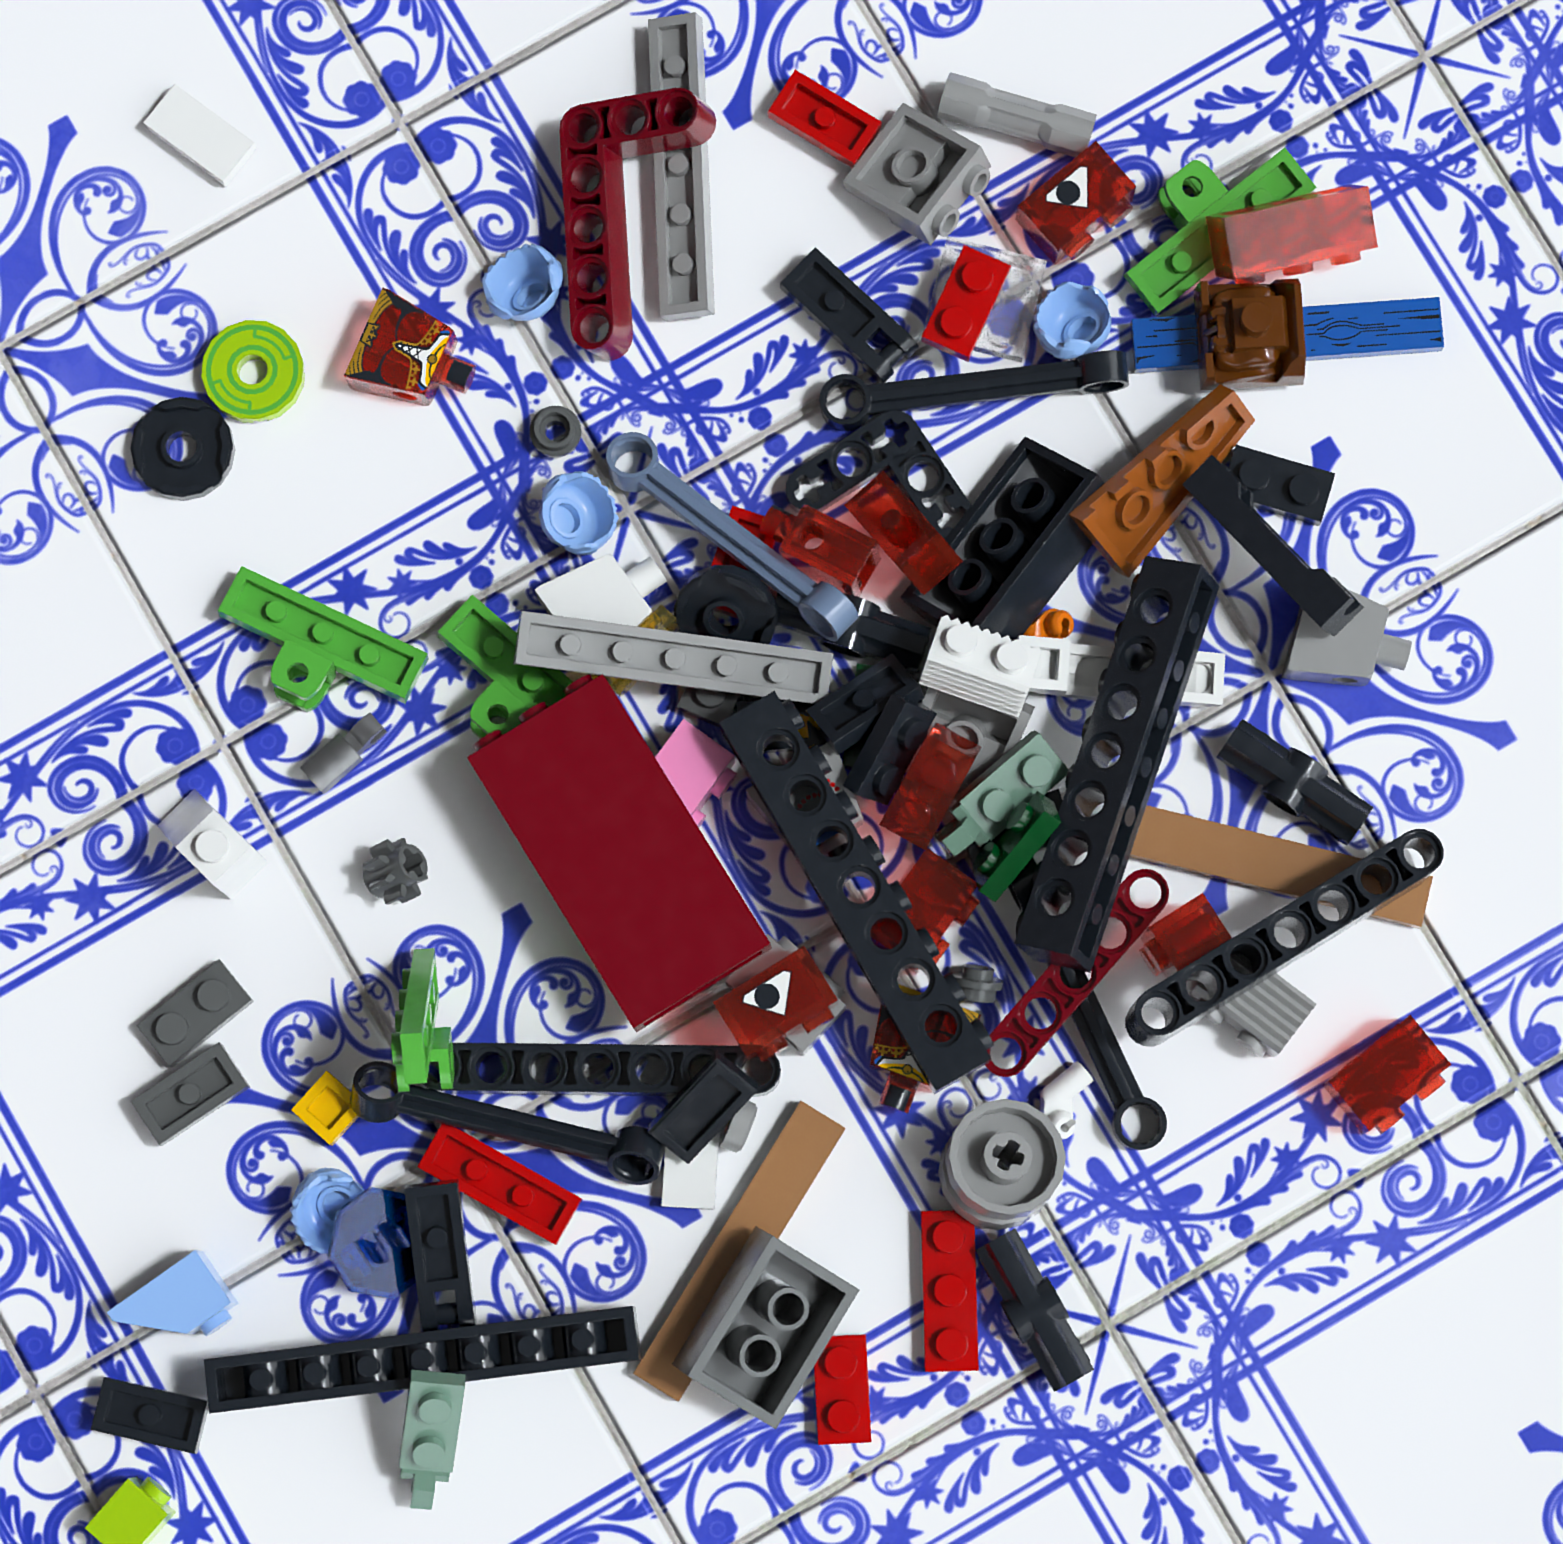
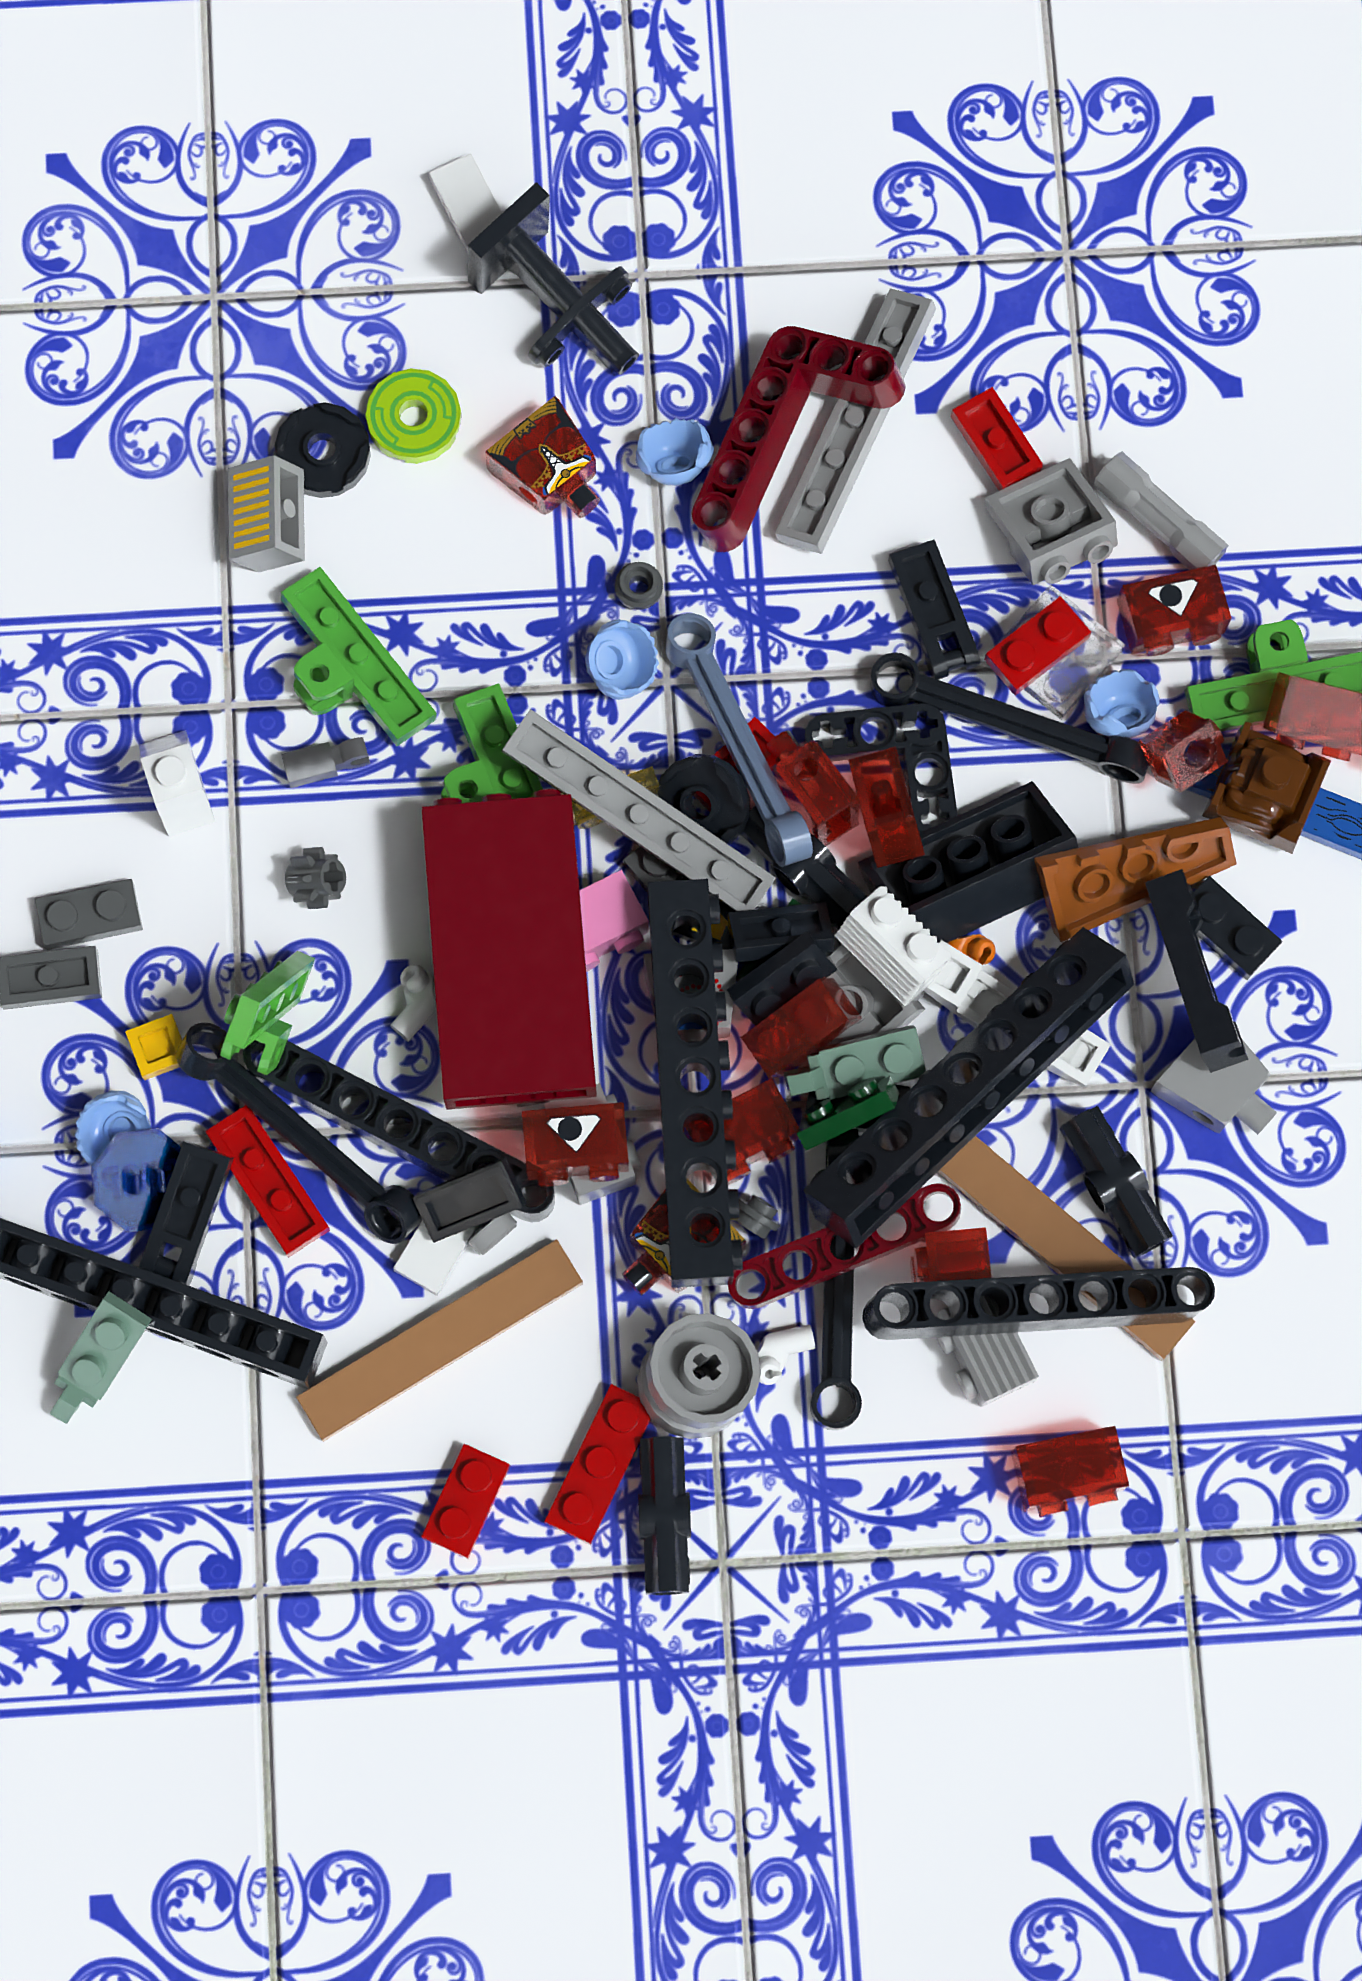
camera: 20 degrees right, 5 degrees down
(163, 541) = (266, 514): none -> light grey brick
(267, 160) = (512, 246): none -> black piece
(554, 937) = (420, 1000): none -> white arm
(603, 592) = (610, 732): white torso -> none
(765, 1327) = (427, 1411): dark grey brick -> none
(1156, 338) = (1166, 748): none -> clear red brick

